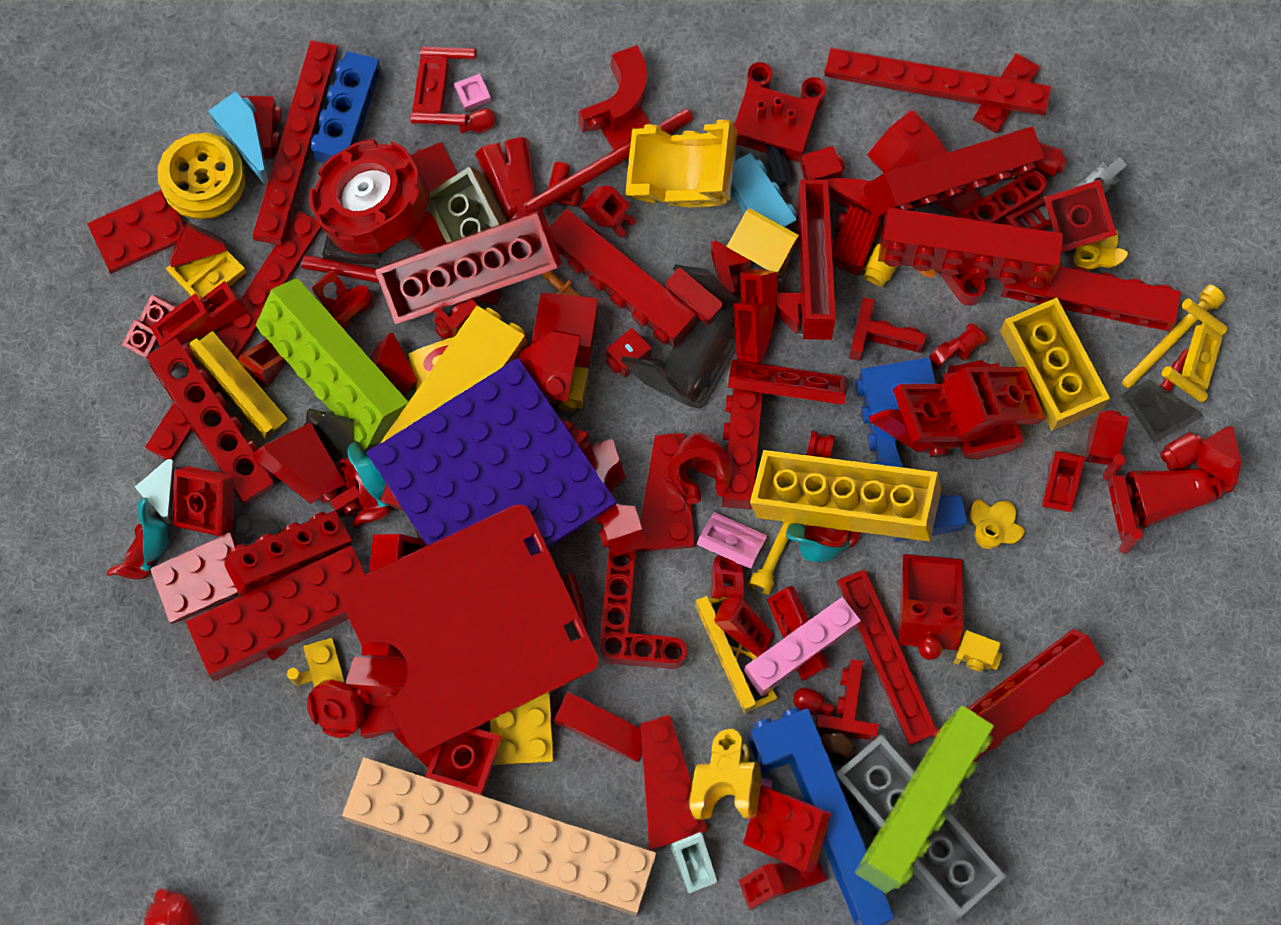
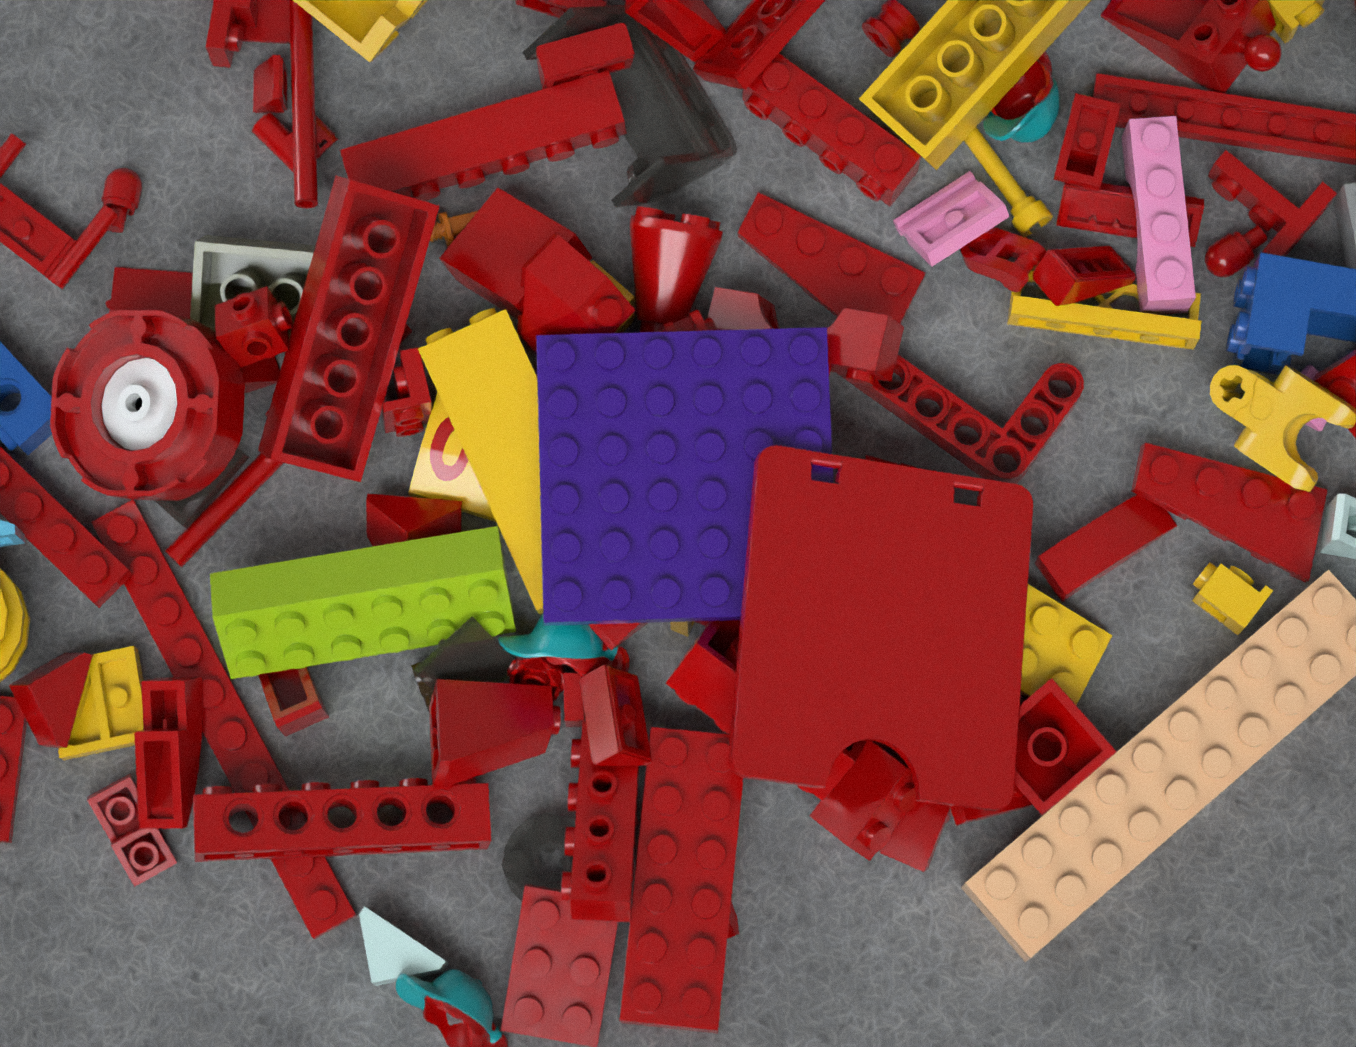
camera: 55 degrees left, 5 degrees up
(203, 501) = (430, 900): red brick -> none
(238, 384) = (307, 752): yellow fence -> none
(322, 664) = (797, 872): yellow plate -> none
(335, 708) = (868, 883): red tile -> none
(345, 524) = (615, 718): none -> red slope
(347, 301) = (278, 534): red bracket -> none
(440, 220) = (253, 326): none -> red brick
(472, 92) = (71, 179): bright pink plate -> none
(509, 174) = (239, 203): red piece -> none
(584, 157) = (270, 86): none -> red slope
(607, 208) = (371, 98): red brick -> none
(612, 811) = (1229, 596): none -> yellow brick
(613, 408) = (669, 263): none -> red cone
(628, 345) = (594, 189): red brick -> none
(706, 456) = (813, 180): red piece -> none
(818, 584) = (1087, 142): none -> red slope
(837, 747) = (1320, 248): reddish brown plate -> none

